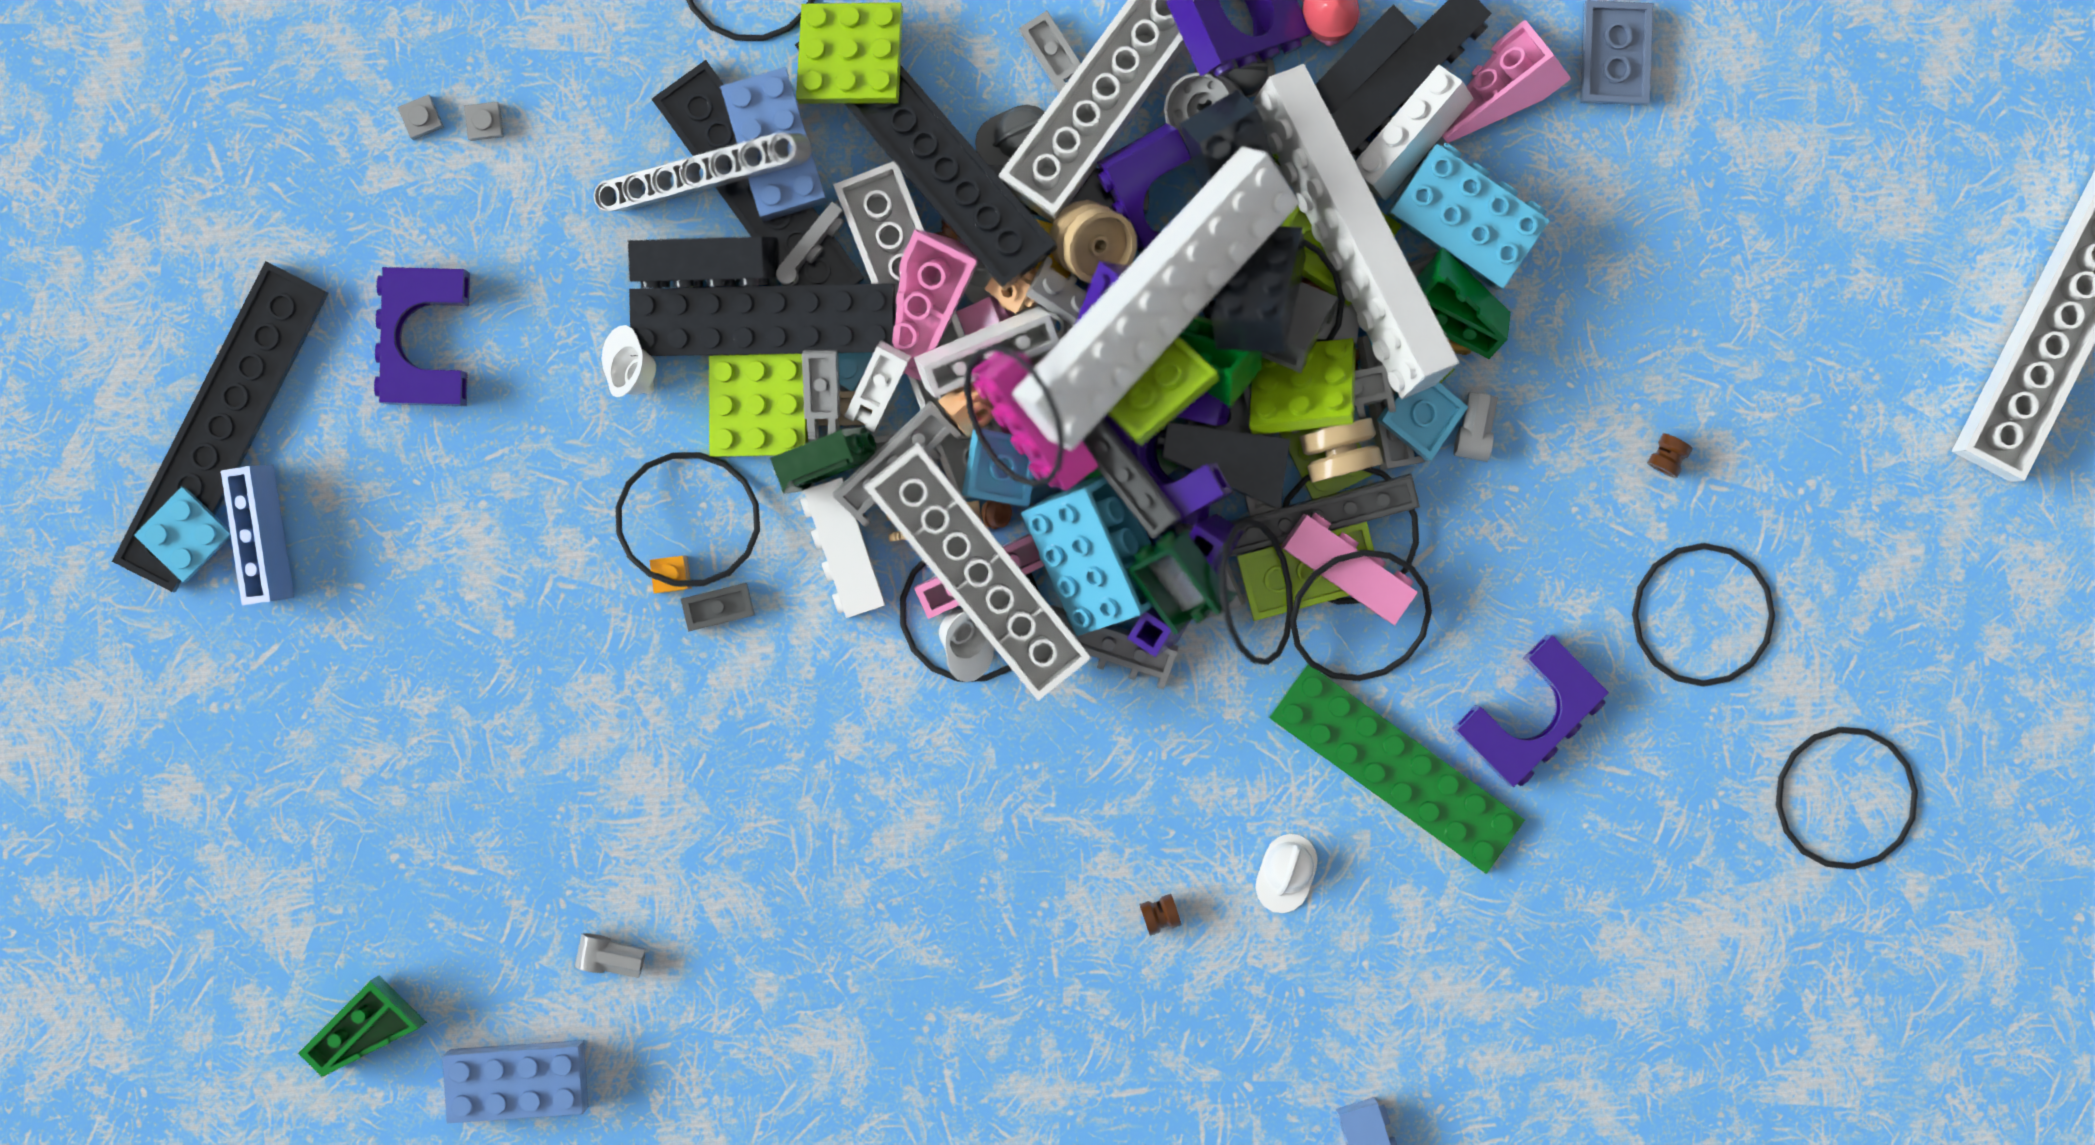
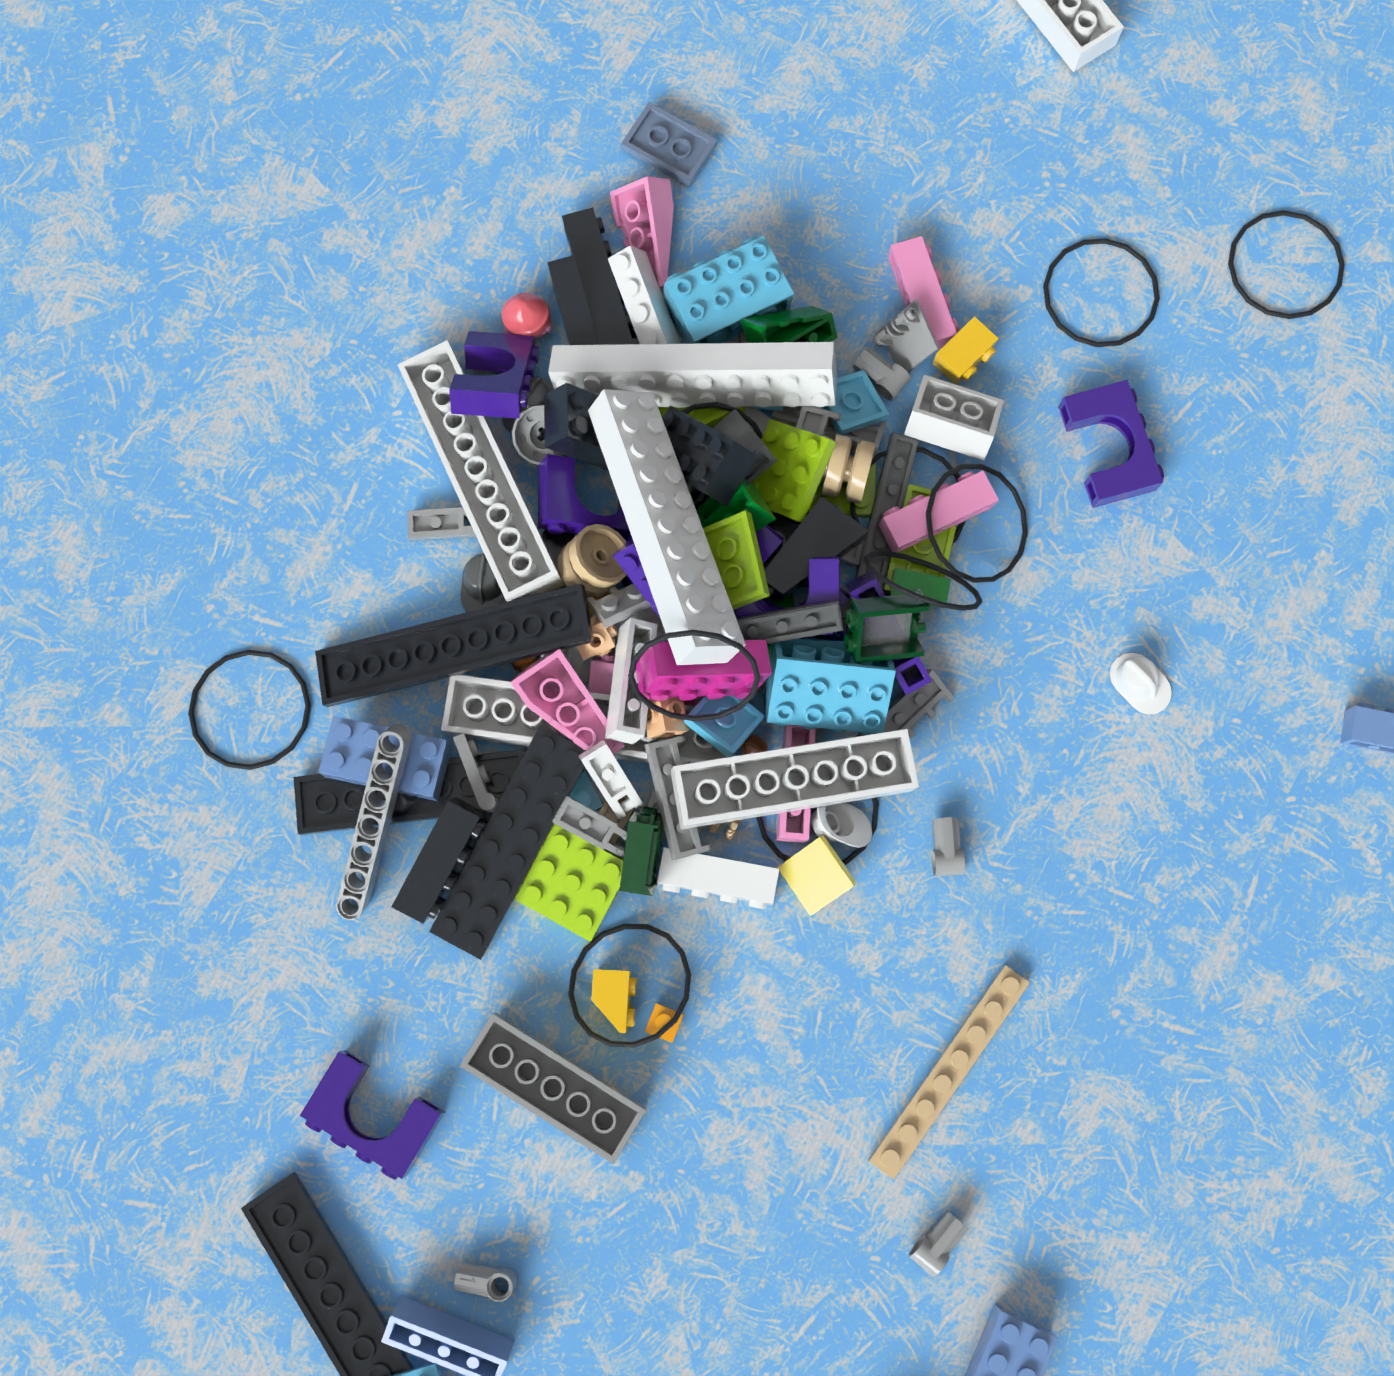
camera: 65 degrees left, 10 degrees down
(329, 535) = (482, 1280): none -> light grey piece
(420, 117) = (206, 1020): light grey plate -> none
(483, 121) = (238, 973): light grey plate -> none
(547, 500) = (553, 1087): none -> light grey brick
(626, 372) = (488, 972): white piece -> none
(667, 508) = (613, 995): none -> yellow slope
(717, 607) = (709, 1000): dark grey plate -> none
(781, 881) = (948, 1072): none -> tan plate
(849, 53) = (352, 666): lime plate -> none
(900, 646) = (817, 875): none -> light yellow tile
(996, 767) = (947, 854): none -> light grey piece
(1160, 914) = (1126, 791): reddish brown wheel -> none
(1257, 592) = (930, 585): none -> green tile
(1396, 768) = (1102, 561): green plate -> none
(1464, 531) = (954, 417): none -> white brick
(1529, 434) = (908, 337): none -> light grey hinge
(1549, 505) = (965, 351): none -> yellow brick
(1591, 423) = (920, 281): none -> bright pink brick
(1669, 455) = (974, 253): reddish brown wheel -> none

